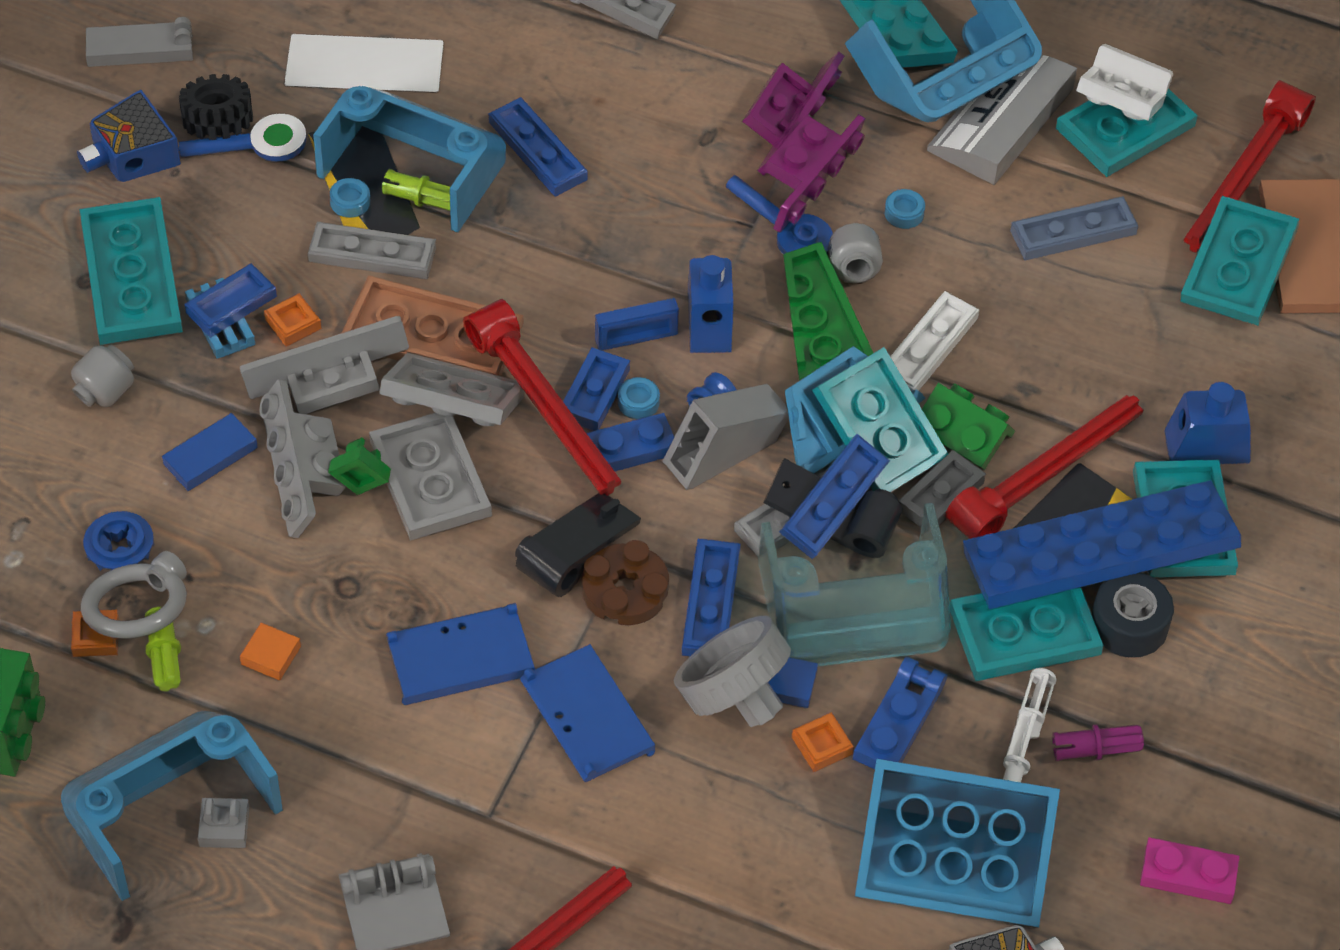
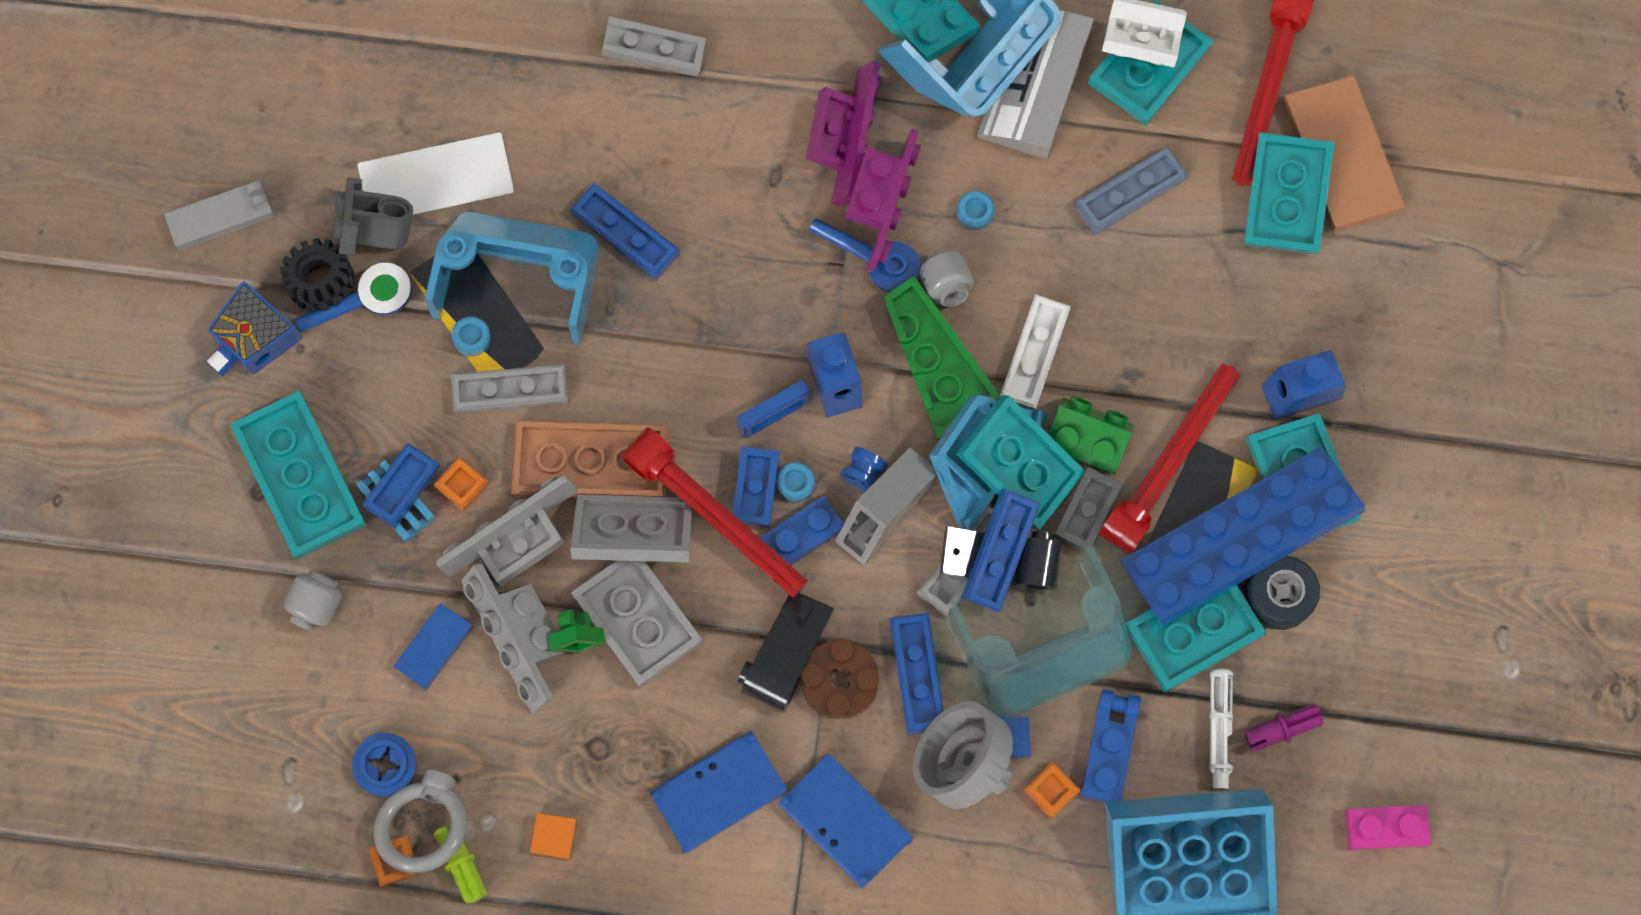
camera: 15 degrees left, 20 degrees up
(286, 70) = (370, 218): none -> dark grey pin
(417, 189) = (534, 313): lime axle -> none

